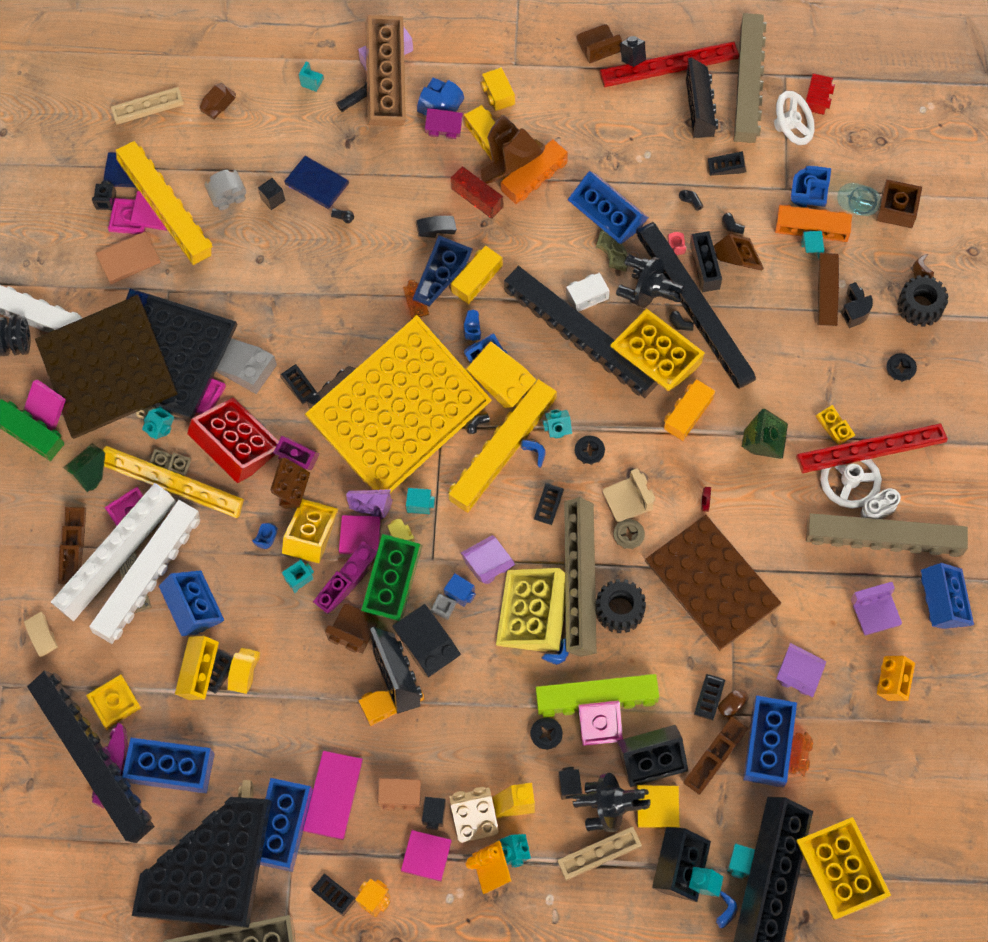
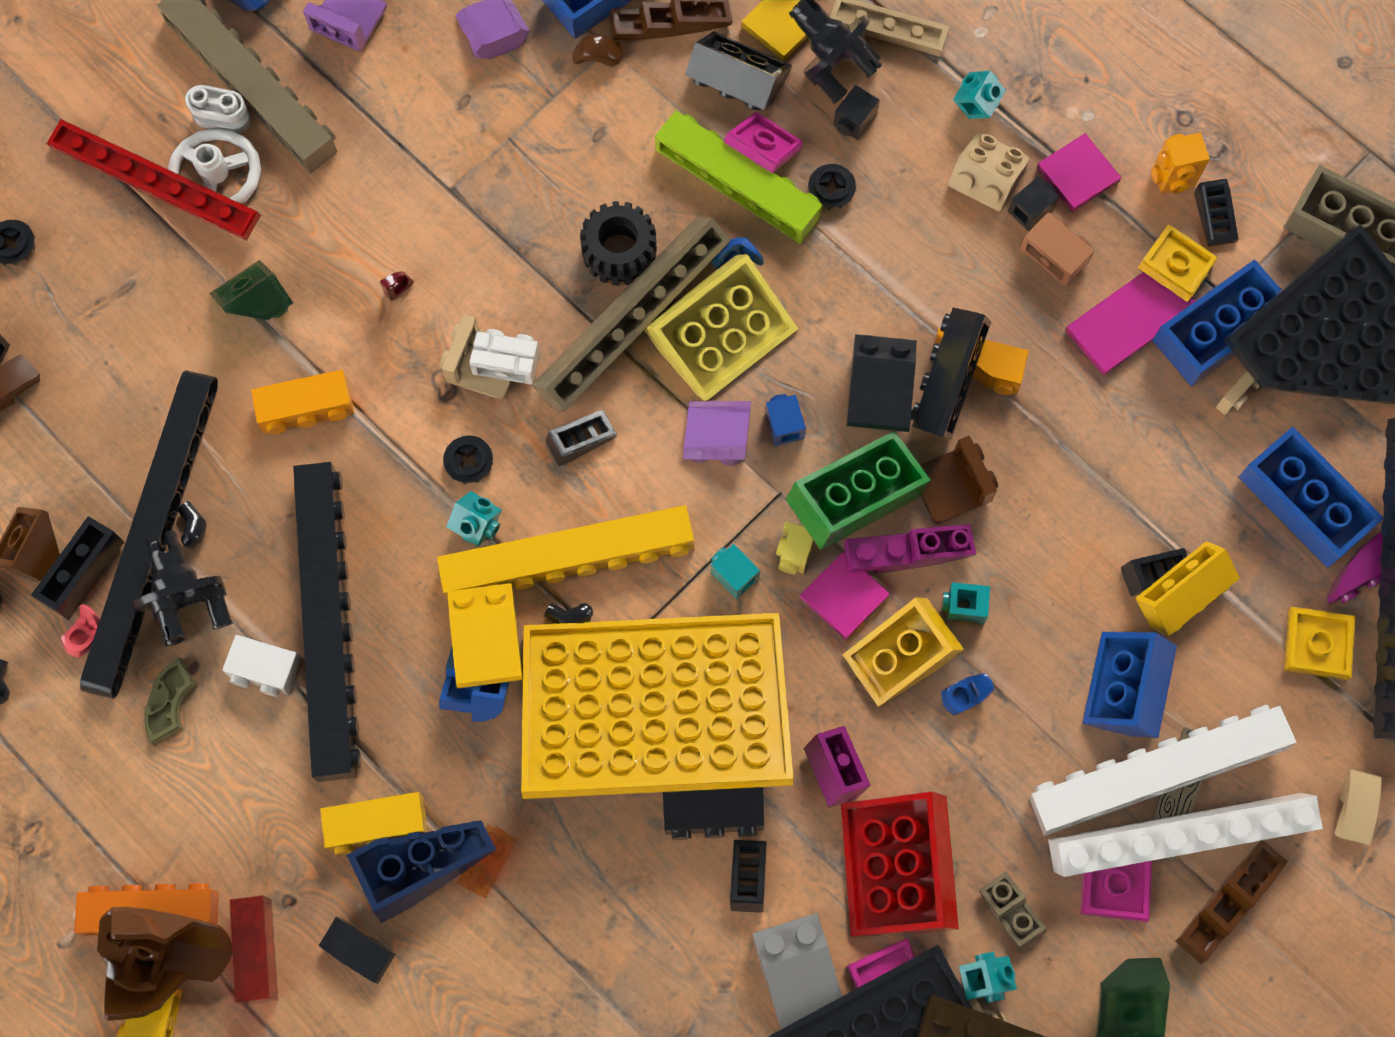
camera: 140 degrees left, 5 degrees up
(173, 482) = (1032, 878): yellow tile -> none
(242, 670) = (1128, 540): yellow brick -> none
(289, 483) = (881, 721): reddish brown bracket -> none
(332, 843) = (1177, 262): none -> yellow tile
(373, 502) = (799, 612): medium lavender slope -> none
(443, 606) = (820, 422): light grey tile -> none
(472, 326) = (454, 750): blue hair -> none
(490, 867) = (1021, 97): light orange hinge -> none
(514, 801) = (935, 132): yellow slope -> none
(534, 446) = (528, 515): blue hair -> none
(607, 208) = (113, 761): blue slope -> none
(617, 503) = (505, 356): none -> white brick
(634, 527) = (521, 309): dark tan gear -> none
(658, 350) = (263, 498): yellow slope -> none
(713, 582) = (486, 194): reddish brown plate -> none
(715, 681) = (613, 91): black slope -> none
(833, 424) = (161, 243): yellow slope -> none

